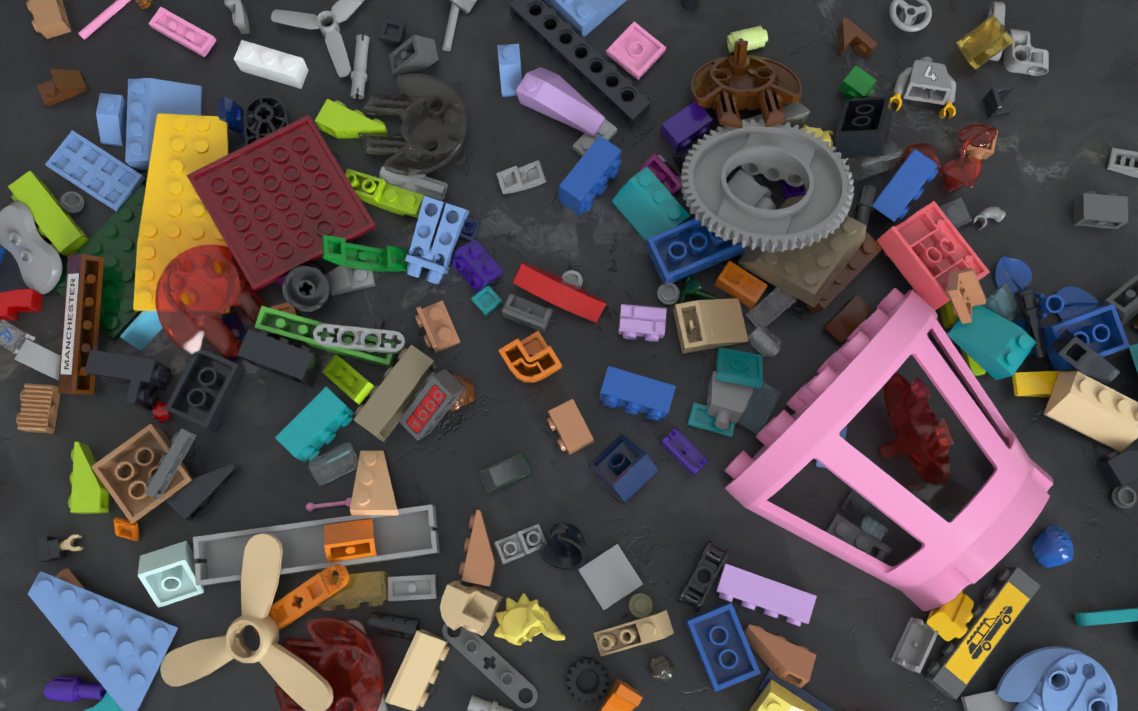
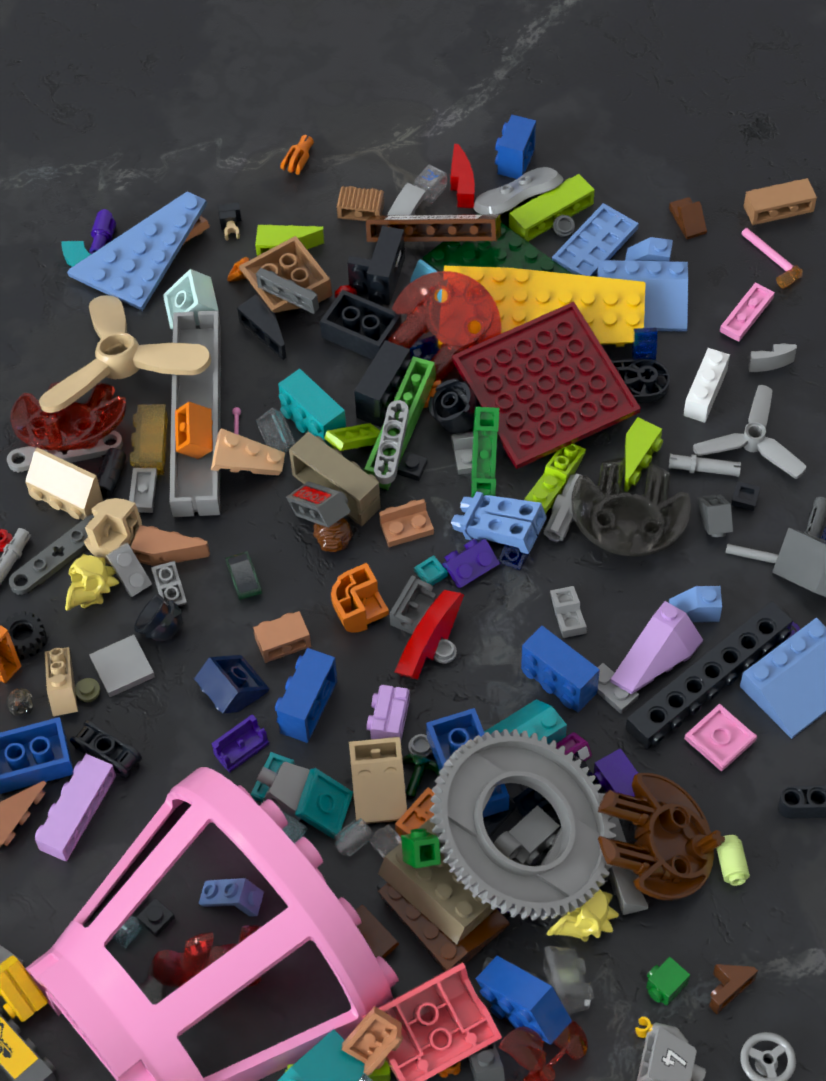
camera: 100 degrees right, 20 degrees down
(313, 593) = (148, 397): orange piece -> none
(510, 584) = (128, 569): none -> light grey plate
(815, 258) = (420, 848): none -> green brick
(864, 127) = (601, 962): black brick -> none

